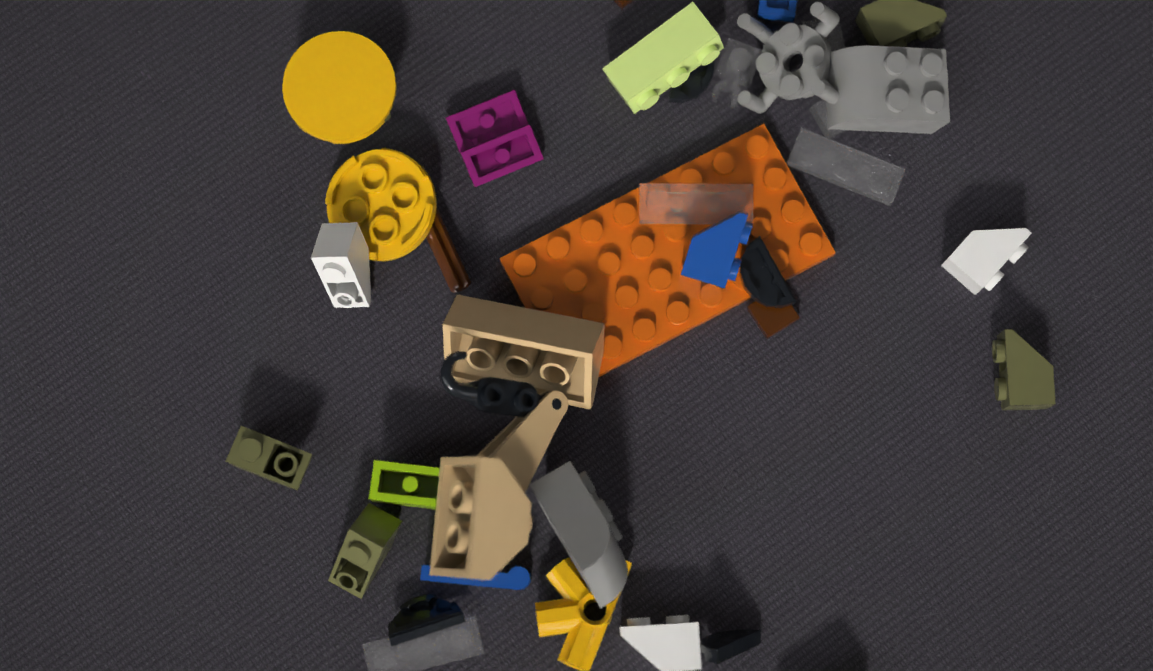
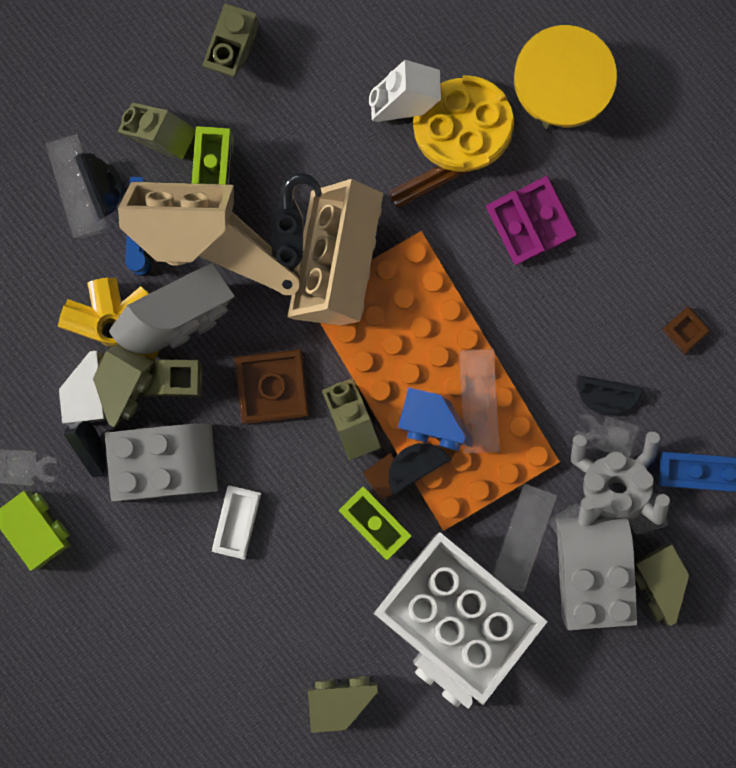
camera: 85 degrees right, 5 degrees up
(654, 549) = (175, 379): none -> olive slope
(656, 598) = (120, 381): none -> olive slope
(664, 58) = (612, 366): yellowish green brick -> none
(666, 434) = (271, 386): none -> reddish brown tile
(707, 345) = (351, 419): none -> olive slope
(749, 560) = (161, 462): none -> light grey brick
(817, 481) = (236, 522): none -> white tile
(826, 323) = (374, 523): none -> lime brick
(932, 234) = (460, 617): none -> white slope

